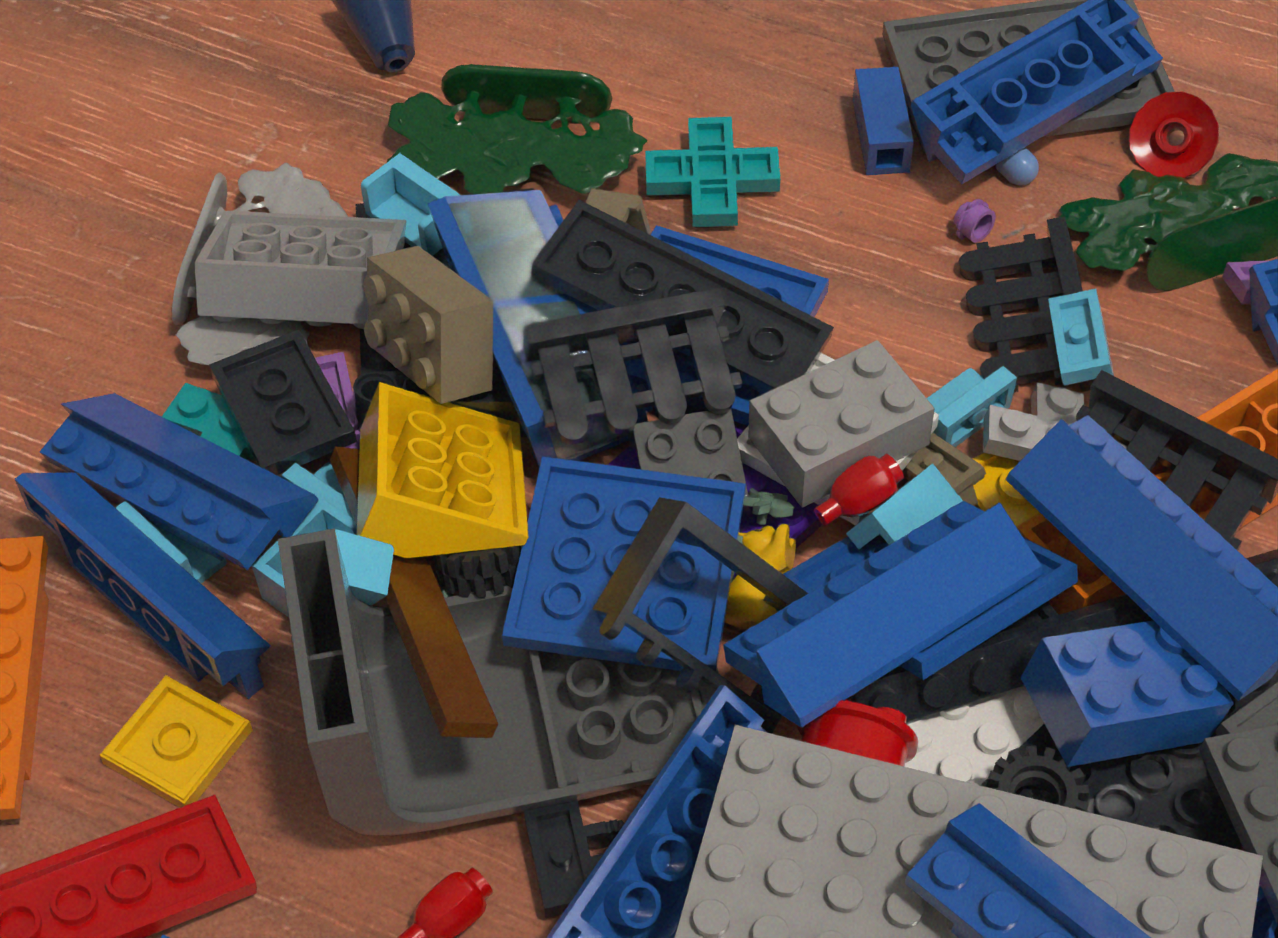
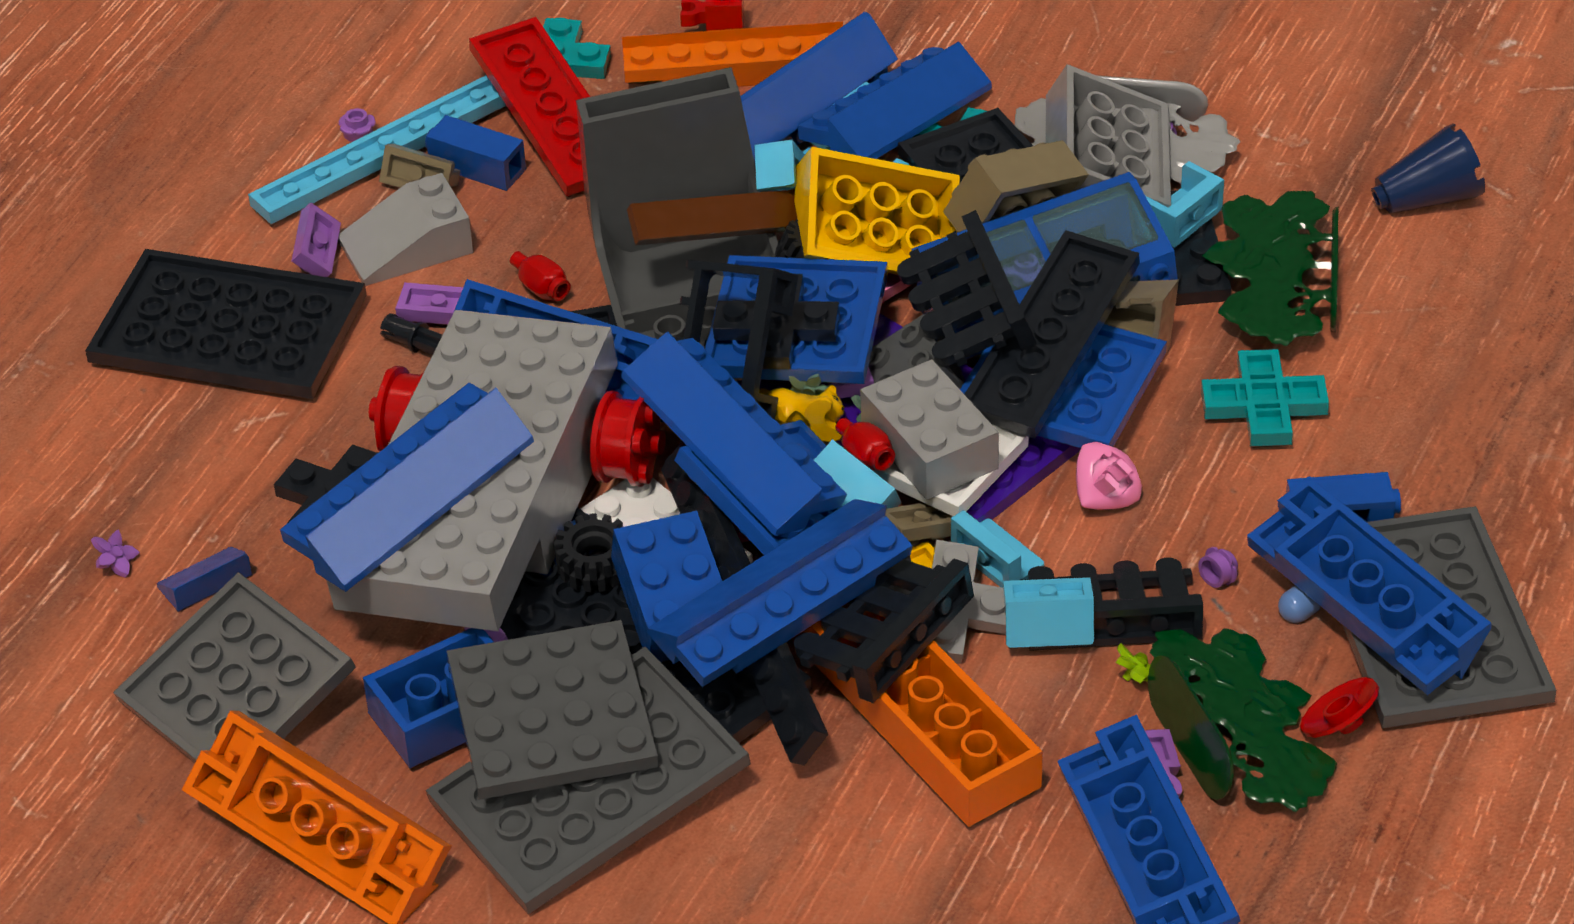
camera: 90 degrees right, 10 degrees down
(683, 577) = (808, 323): none -> black plate
(857, 299) = (1106, 478): none -> bright pink piece
(1128, 291) = (1136, 665): none -> lime plant

